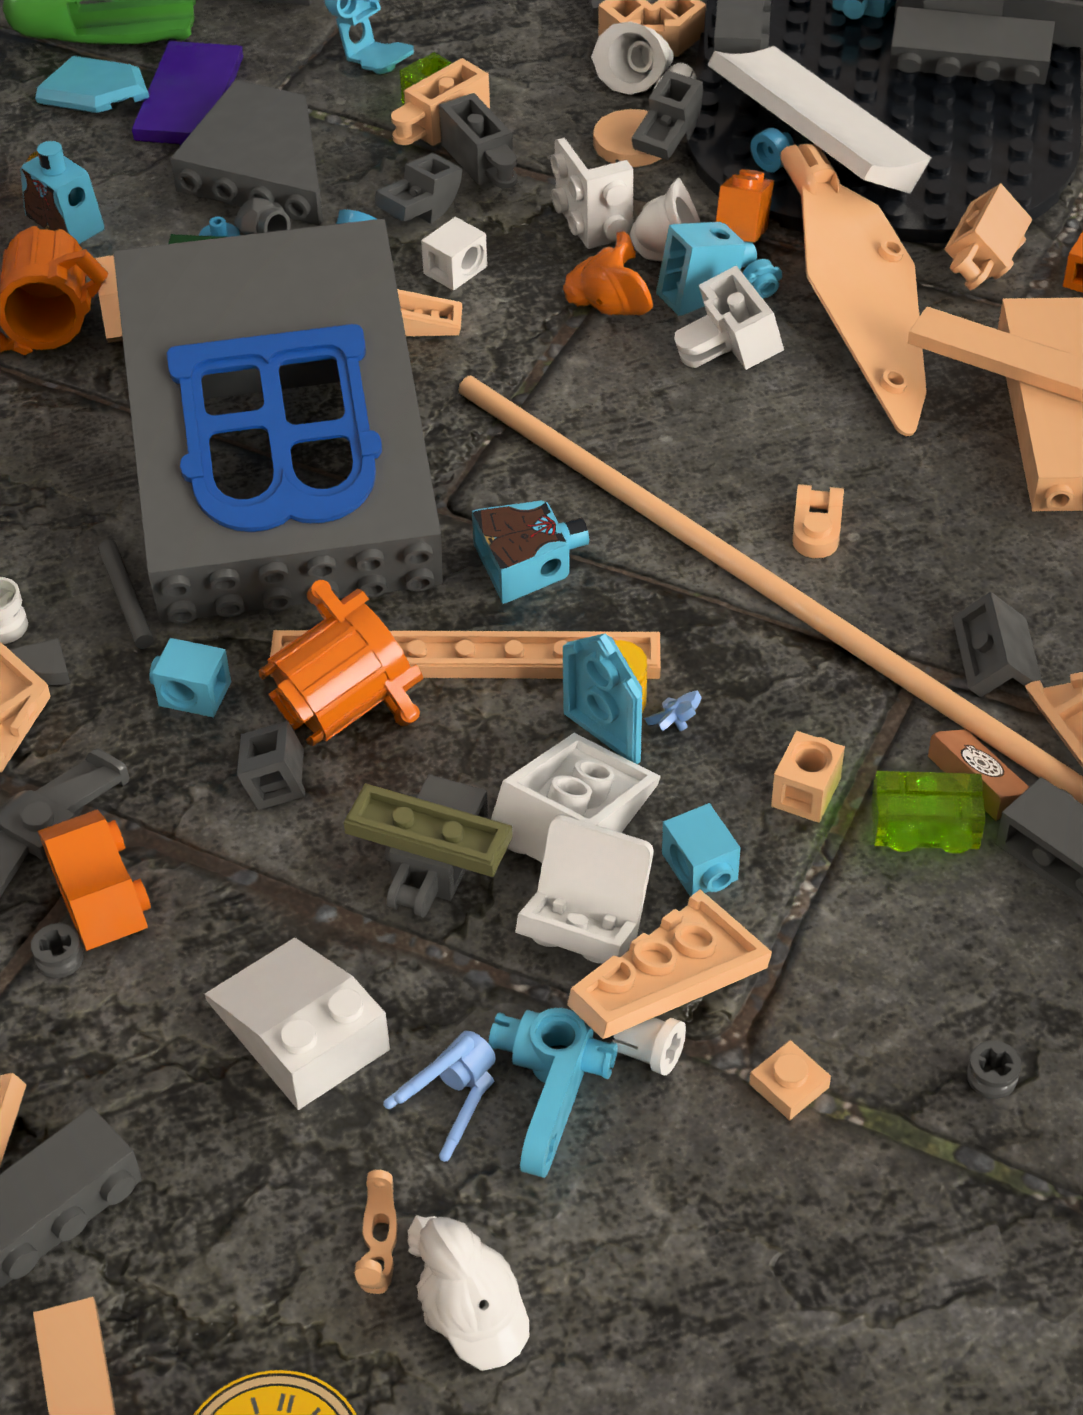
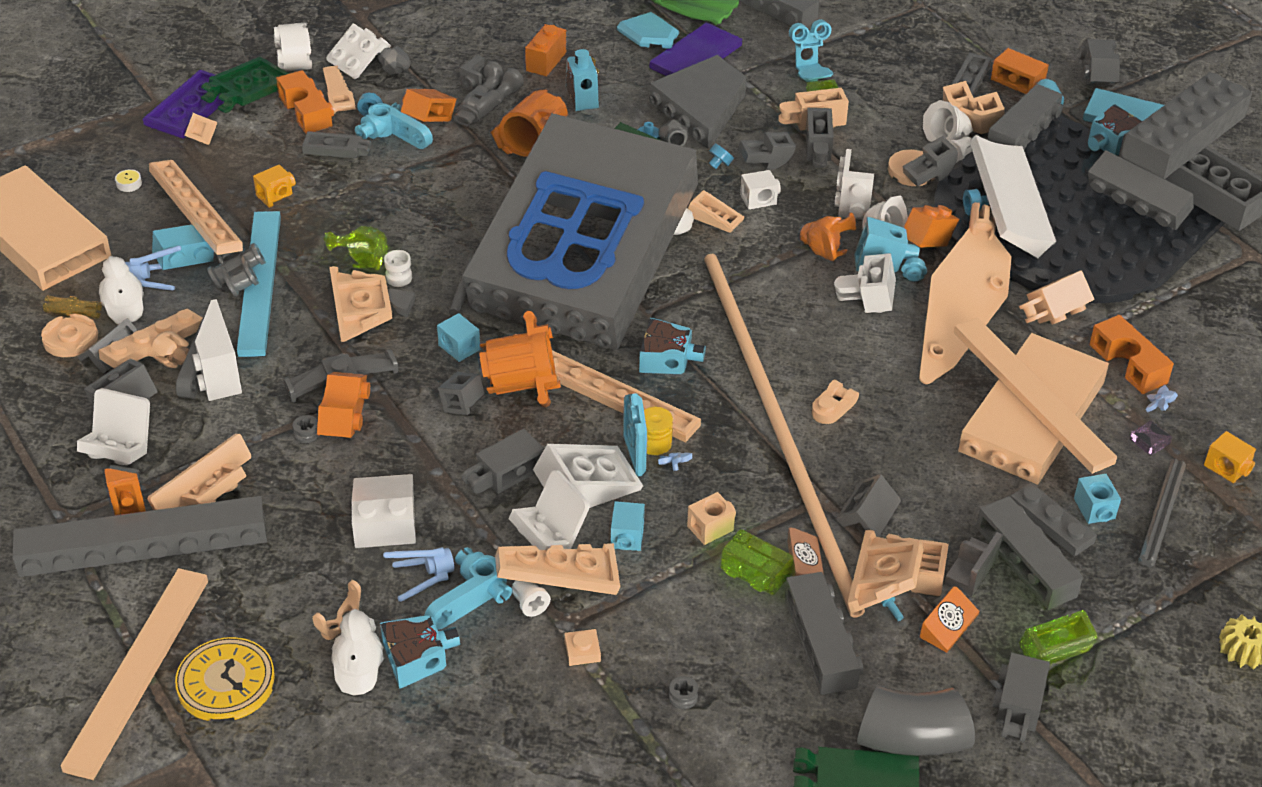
camera: 30 degrees right, 5 degrees down
(428, 829) = (500, 451): olive tile -> none
(549, 1226) = (416, 647): none -> torso

